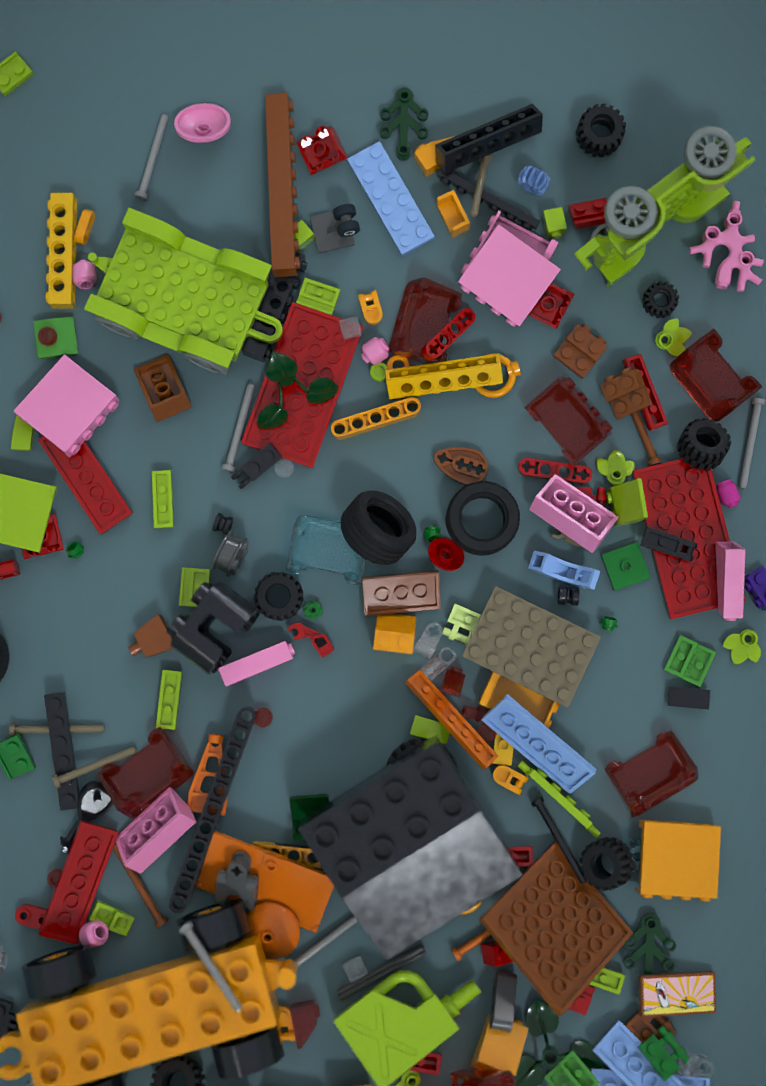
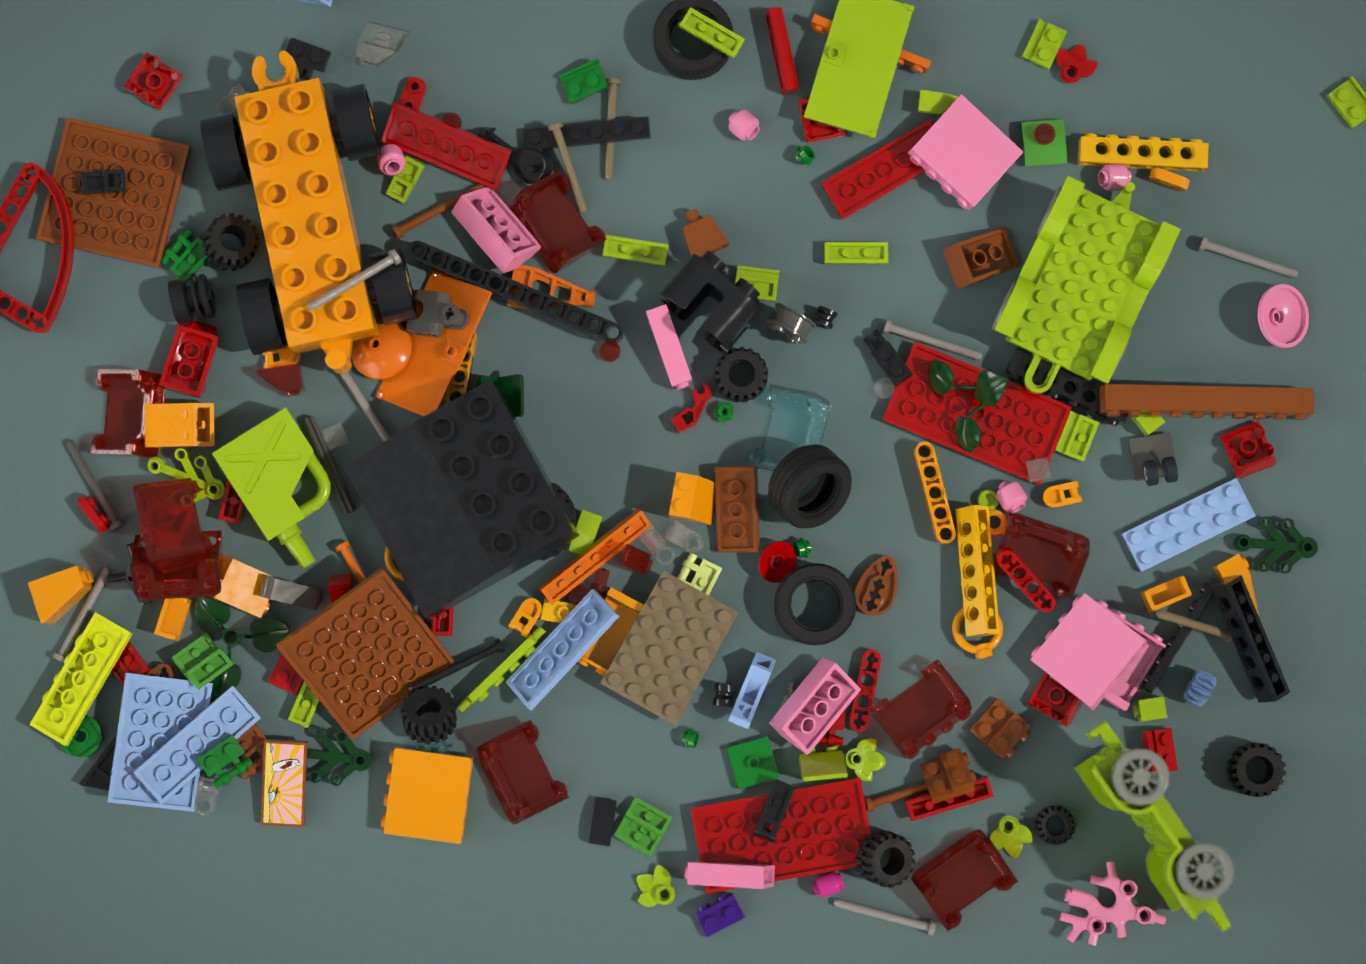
camera: 95 degrees right, 0 degrees up
(49, 606) = (744, 125): none -> bright pink head

